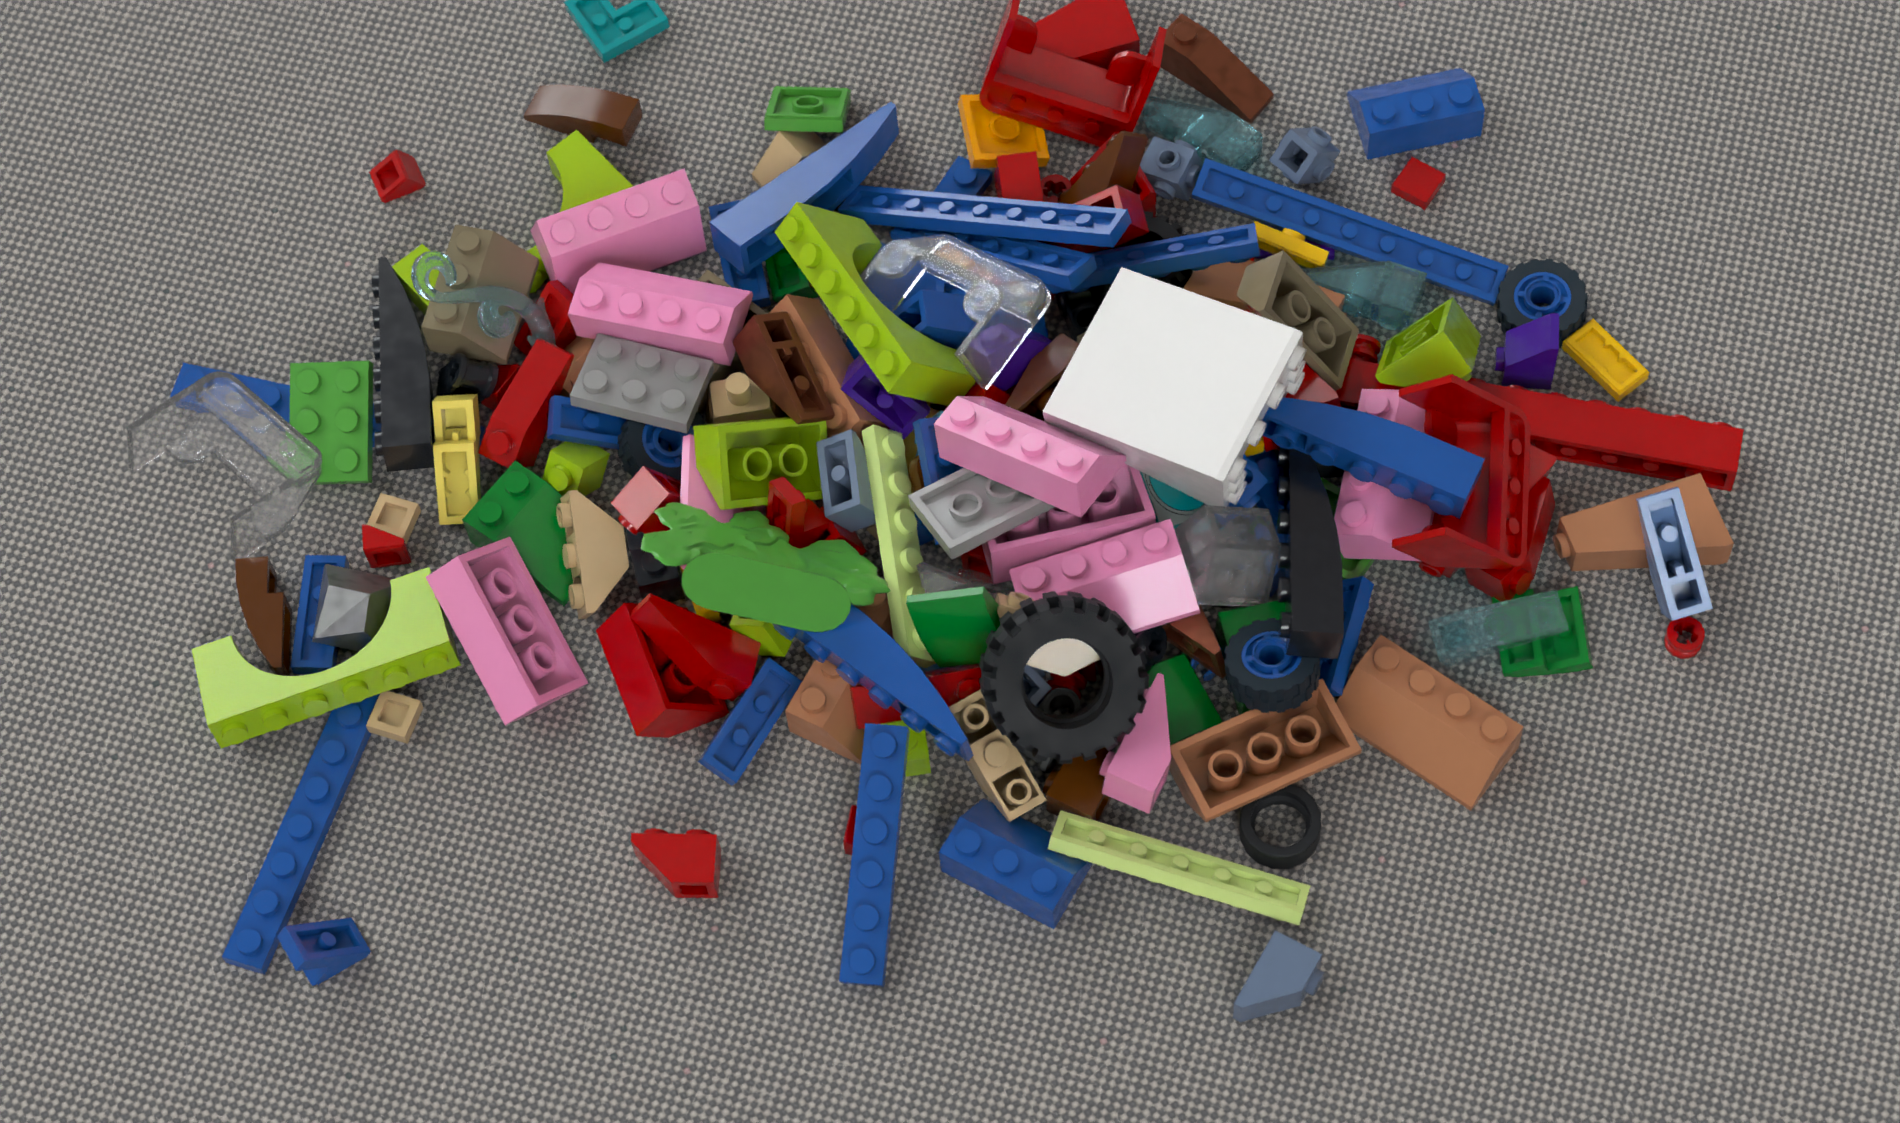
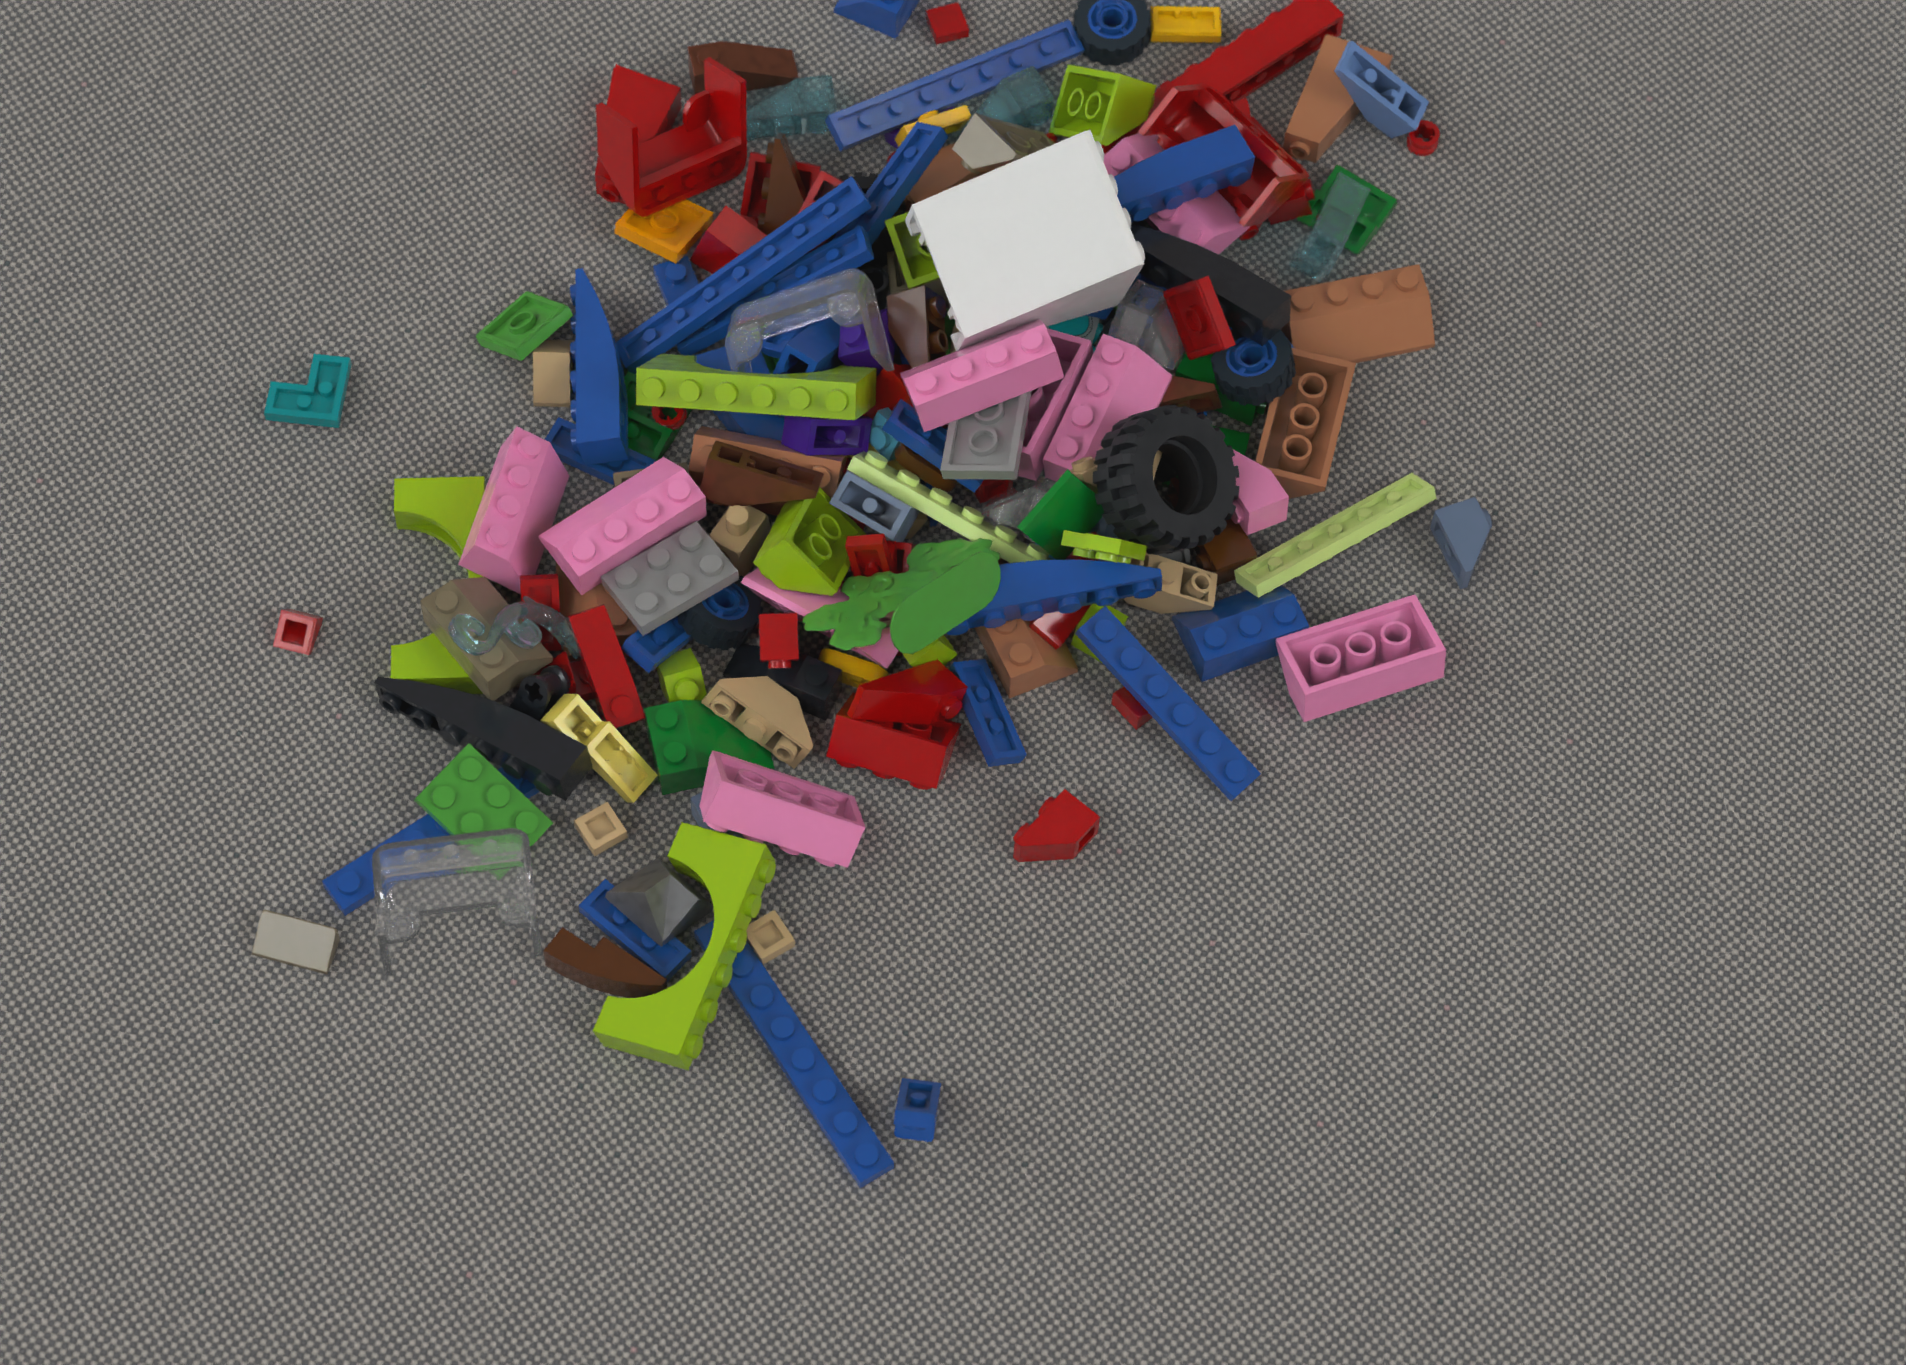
camera: 60 degrees left, 0 degrees up
(116, 387) = (295, 941): none -> slope
(384, 548) = (619, 850): red slope -> none
(587, 110) = (374, 467): reddish brown slope -> none
(950, 677) = (1103, 547): none -> lime plate
(1066, 979) = (1360, 657): none -> bright pink slope
(1171, 168) = (805, 142): sand blue brick -> none
(1257, 581) = (1199, 318): none -> red tile
(1288, 856) = (1373, 439): black tyre -> none
(1305, 155) = (875, 76): sand blue brick -> none
(1530, 353) = (1150, 51): dark purple slope -> none

